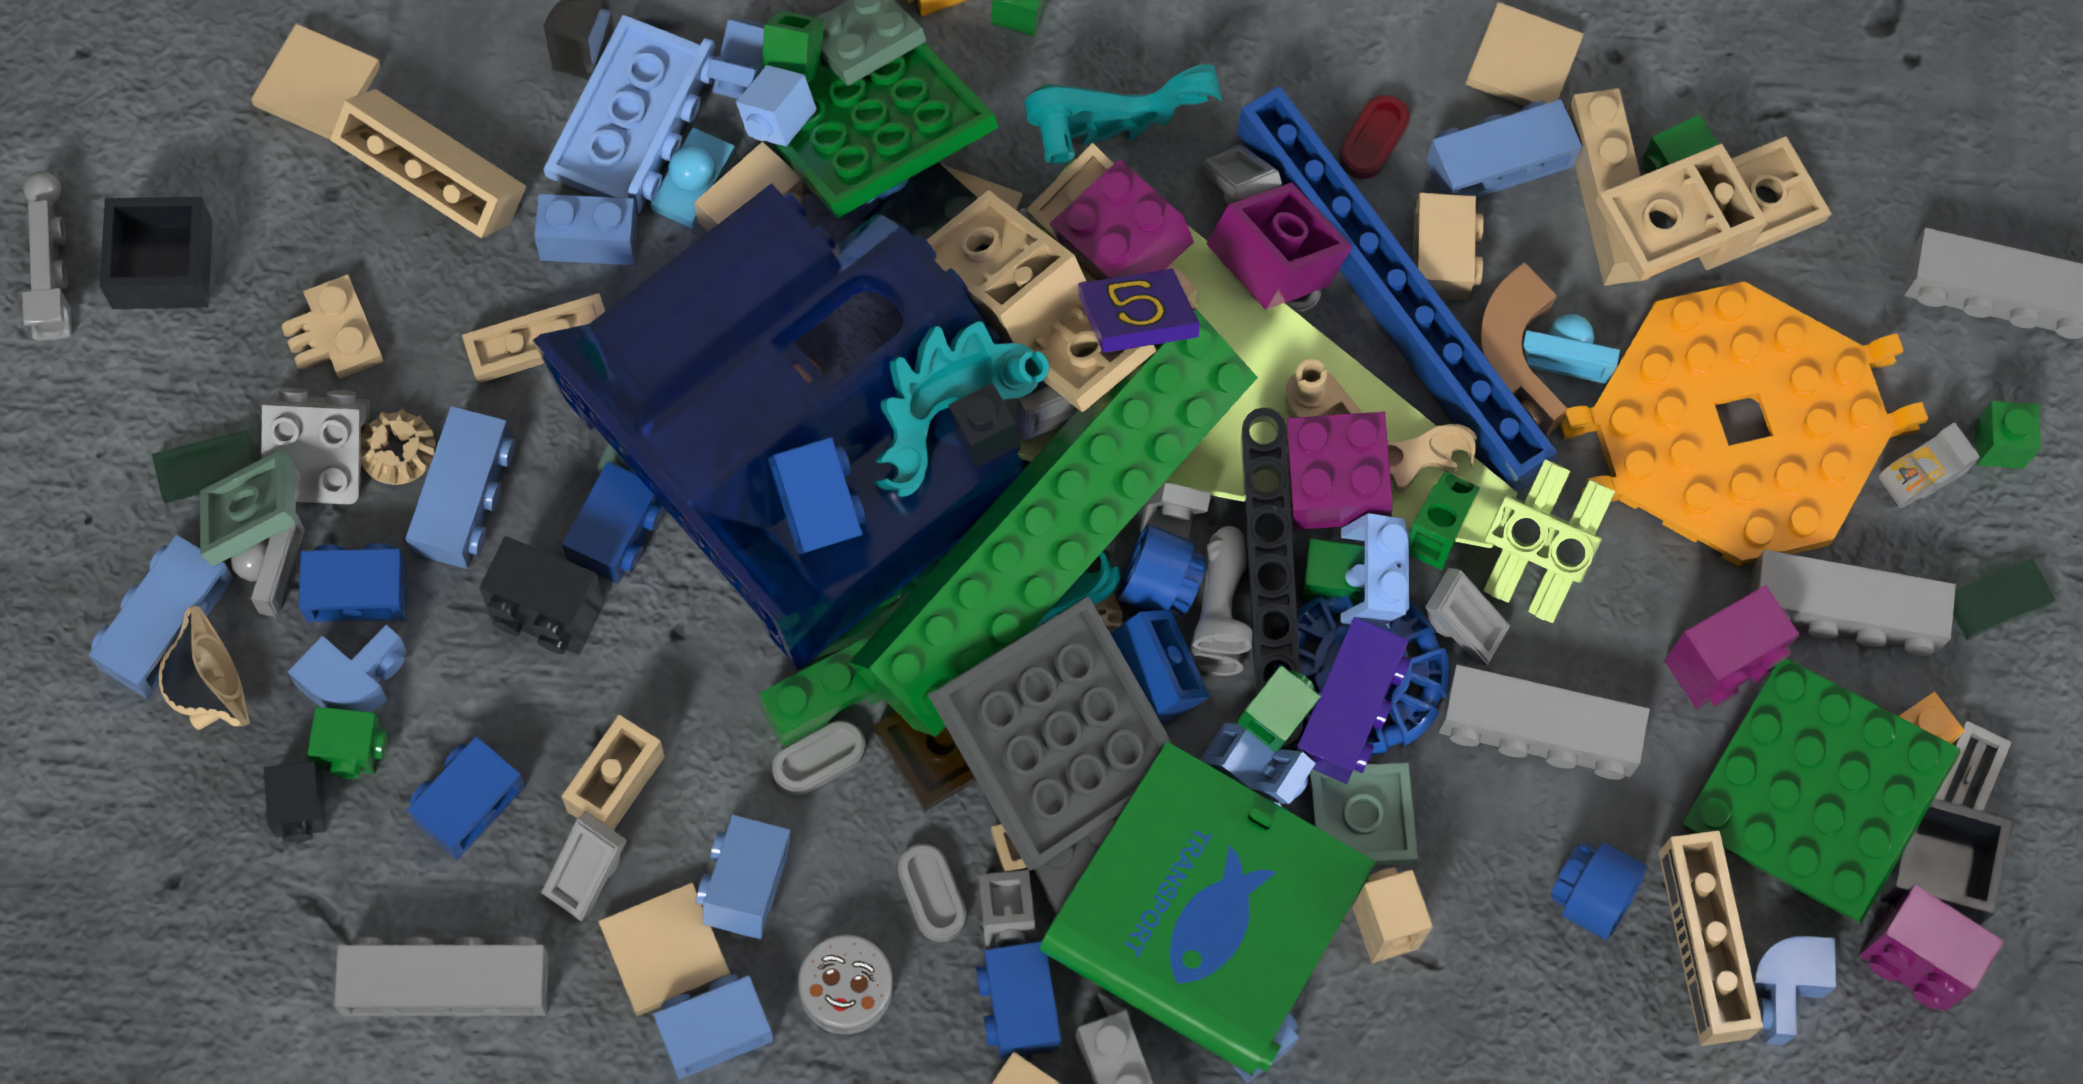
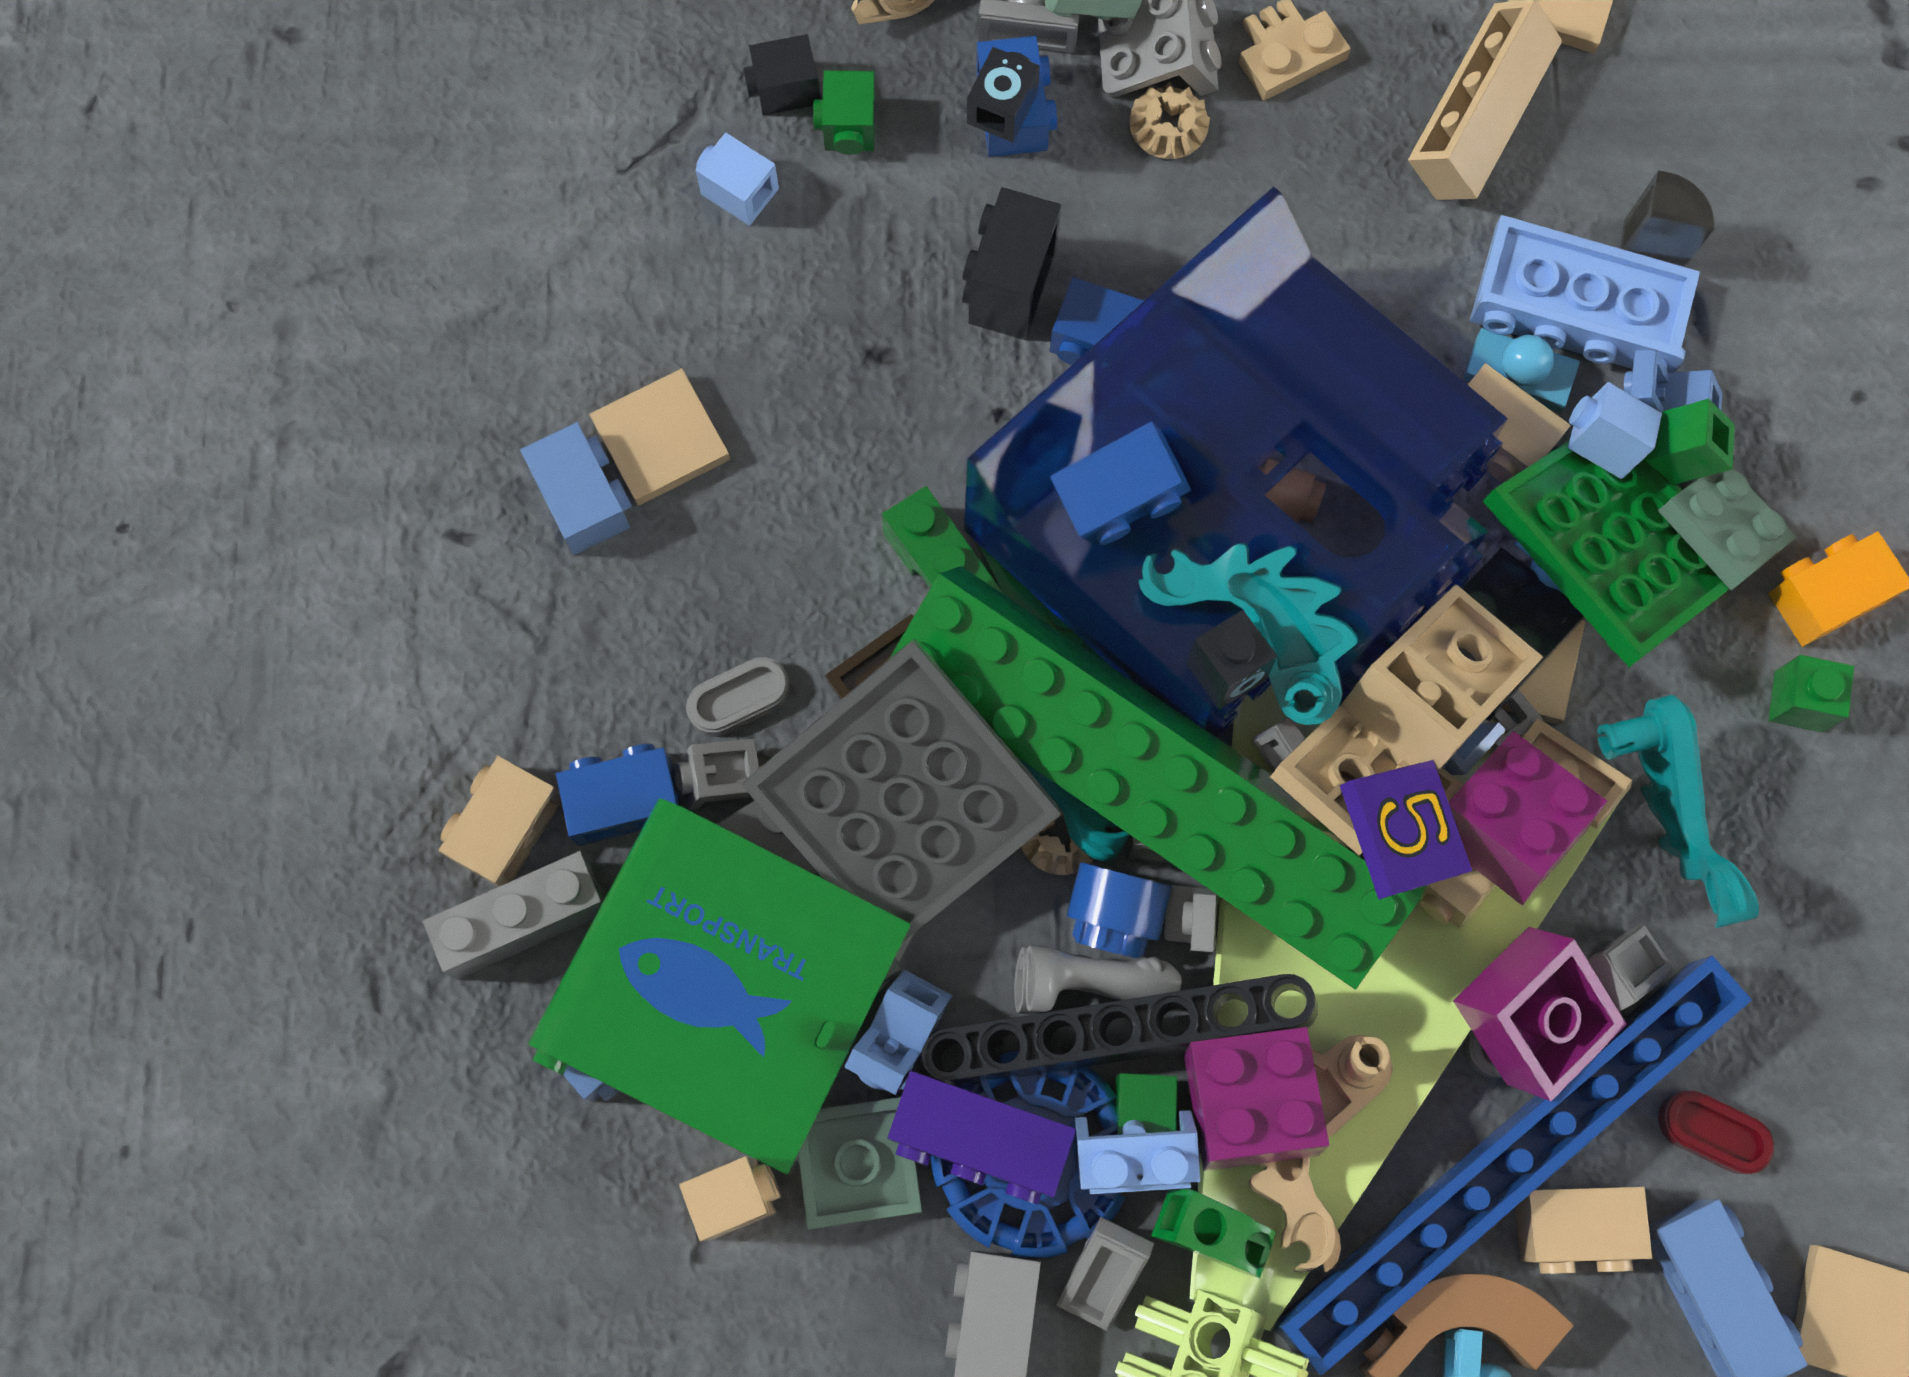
camera: 90 degrees right, 5 degrees up
(349, 684) = (911, 105): medium blue brick -> none
(370, 581) = (1003, 93): none -> black brick
(402, 855) = (736, 178): none -> light blue brick
(441, 978) = (611, 230): light grey brick -> none
(460, 488) = (1130, 180): medium blue brick -> none
(465, 796) = (799, 227): blue brick -> none
(510, 344) = (1311, 220): tan plate -> none
(584, 866) = (735, 344): light grey tile -> none
(586, 229) = (1438, 264): medium blue brick -> none
(614, 773) = (828, 358): tan brick -> none
(744, 876) = (733, 499): medium blue brick -> none
(818, 757) = (876, 567): light grey tile -> none
(845, 984) = (629, 615): light grey head -> none
(1161, 663) = (1006, 910): blue brick -> none
(1279, 708) = (954, 1047): brick -> none

